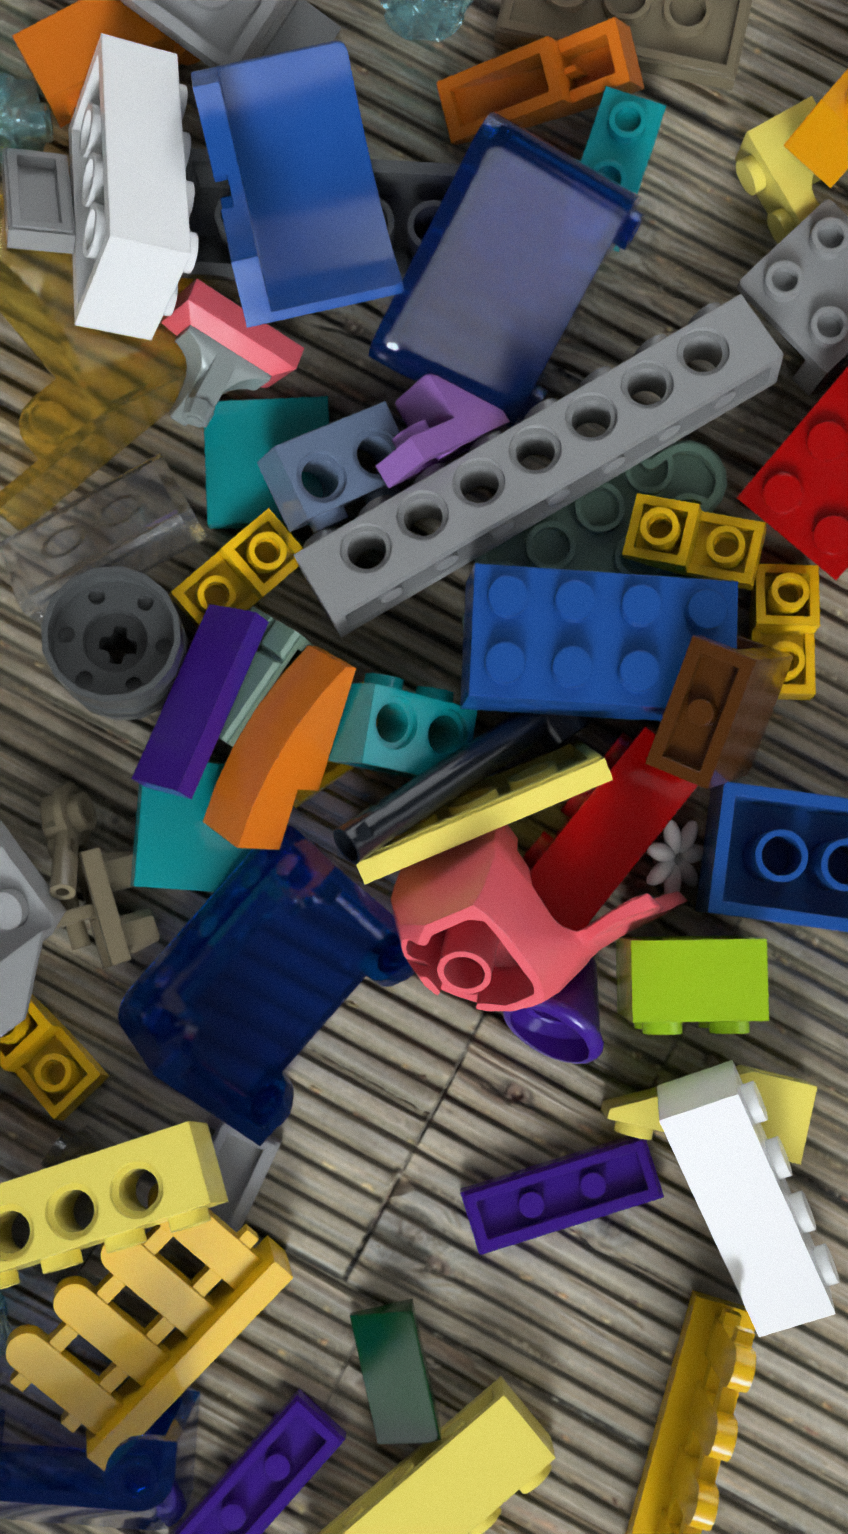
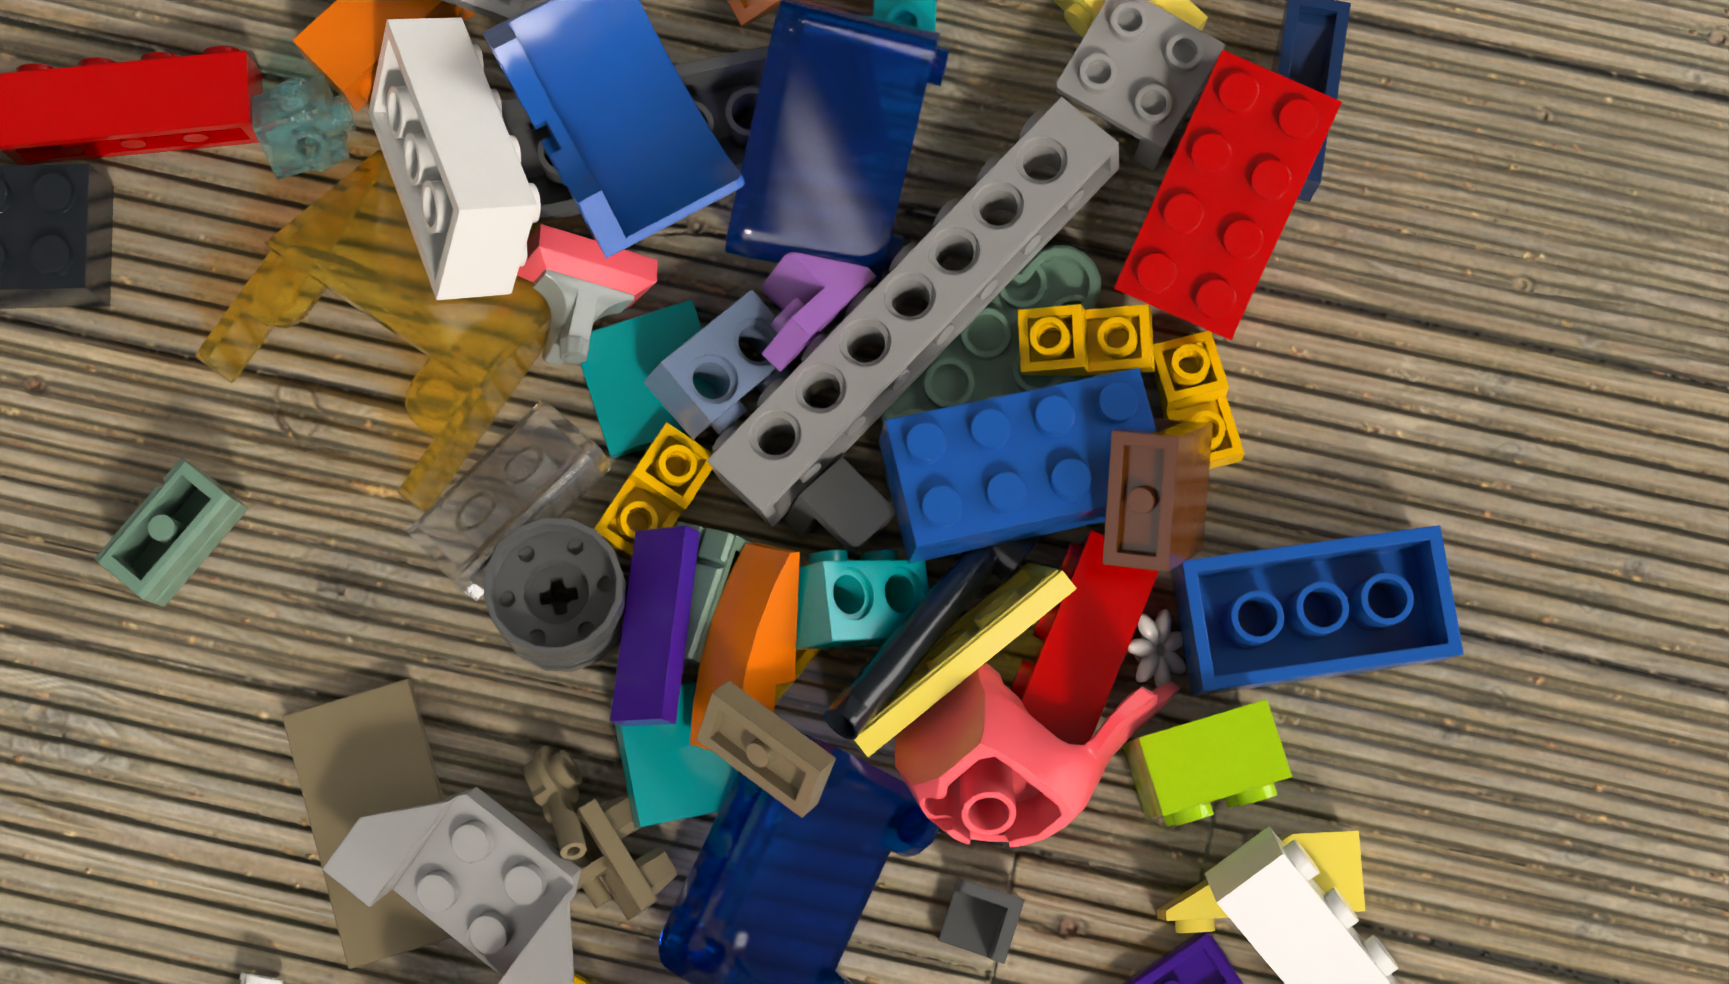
camera: 20 degrees left, 5 degrees down
(37, 201) = (363, 191): light grey tile -> none
(266, 848) = (765, 748): none -> dark tan plate
(413, 635) = (843, 506): none -> dark grey panel
(433, 1064) = (981, 920): none -> dark grey panel
(565, 1024) = (1097, 842): dark purple hat -> none

